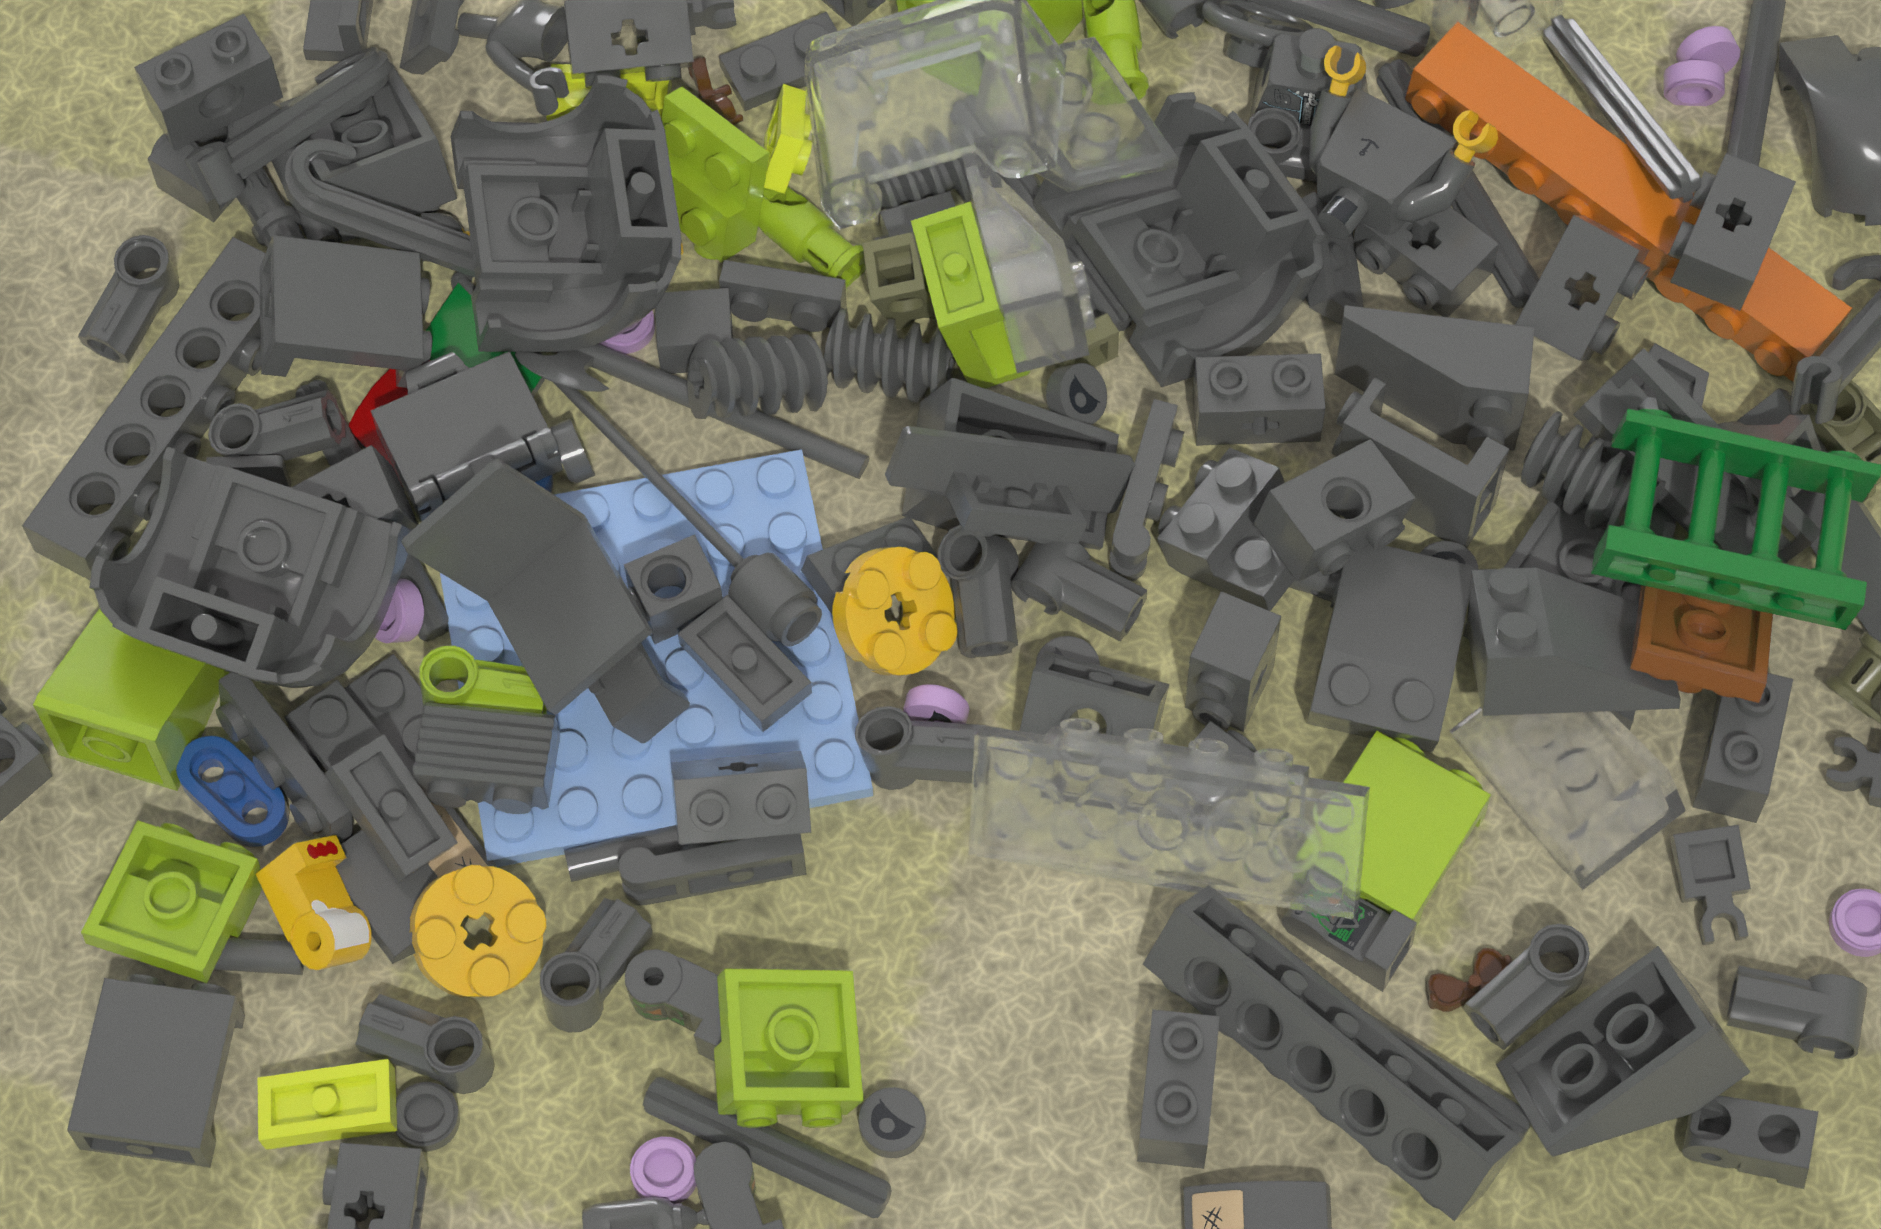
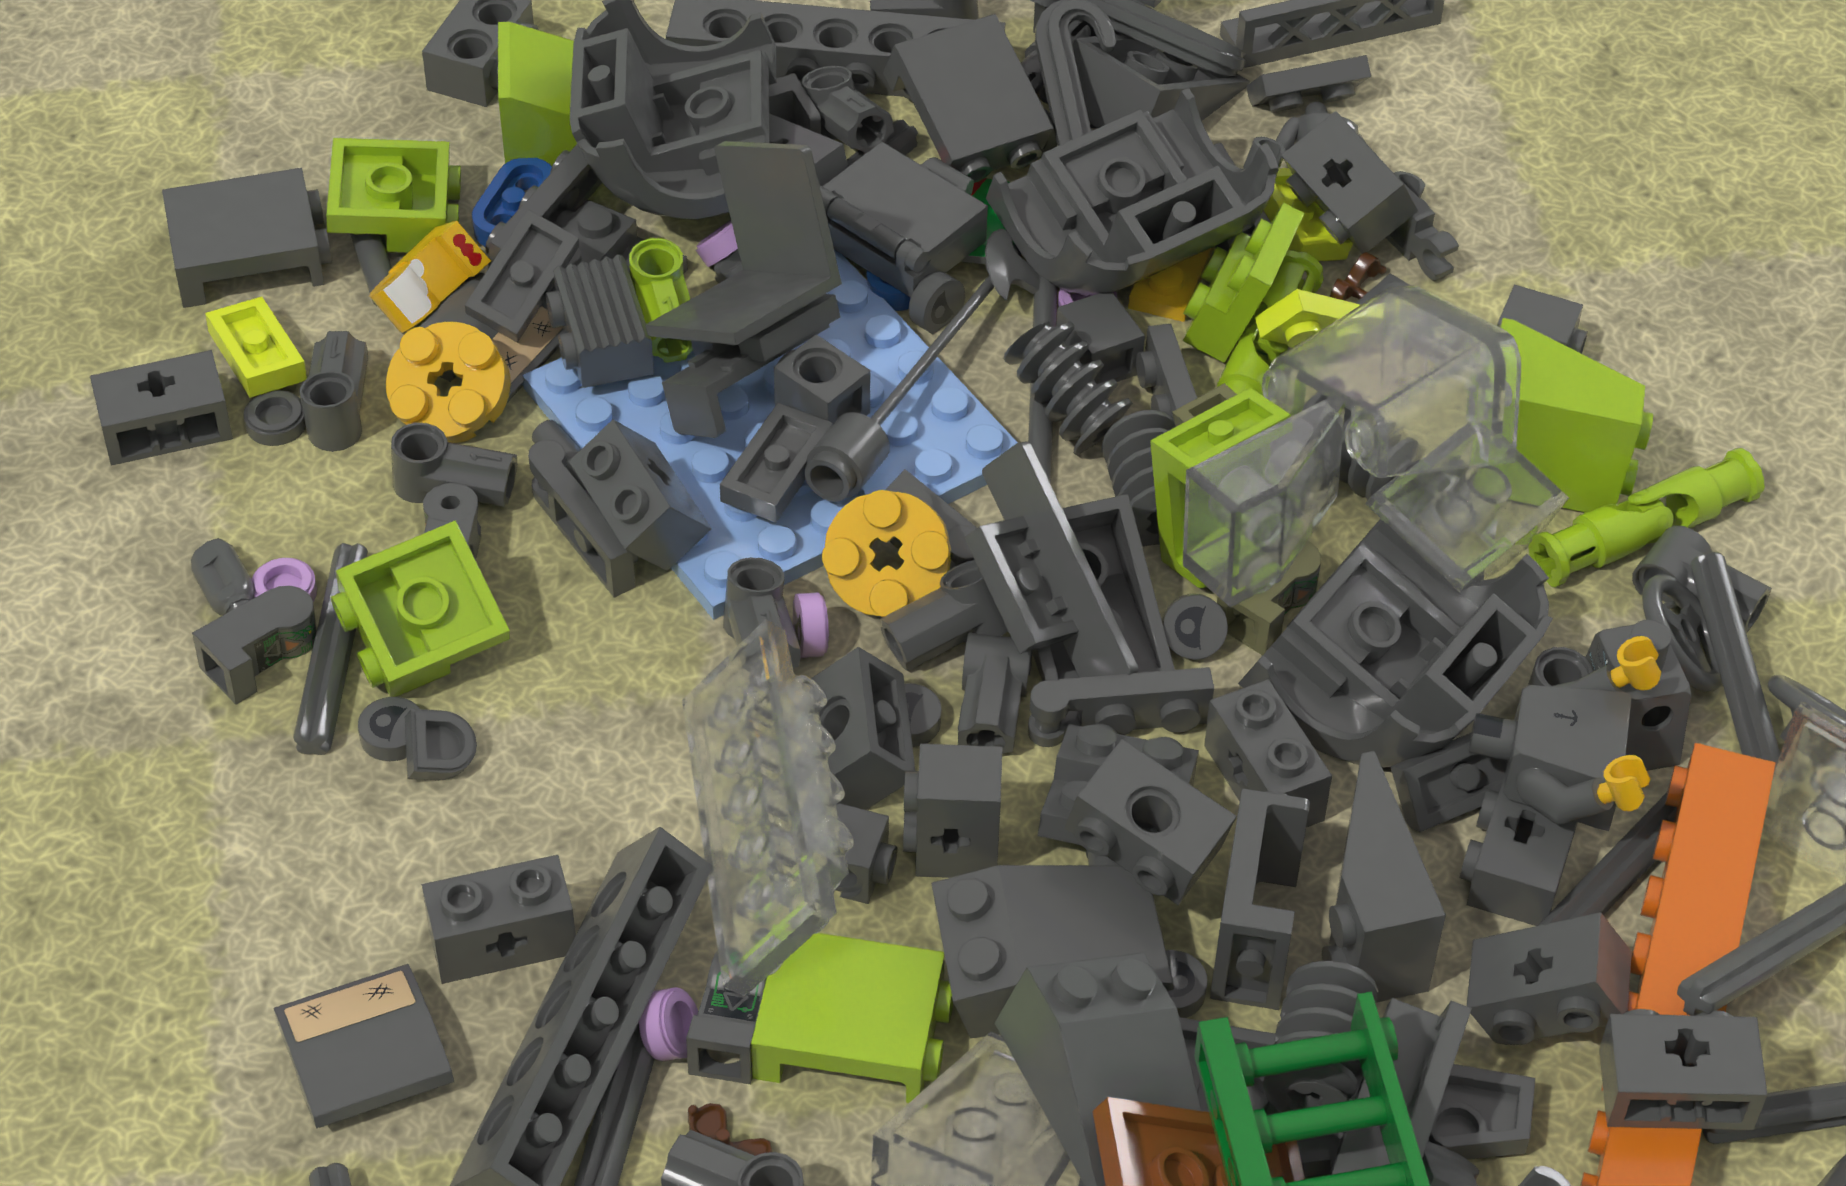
camera: 65 degrees right, 15 degrees down
(939, 1085) = (437, 744): none -> dark grey tile
(1349, 981) = (666, 1023): none -> lavender tile

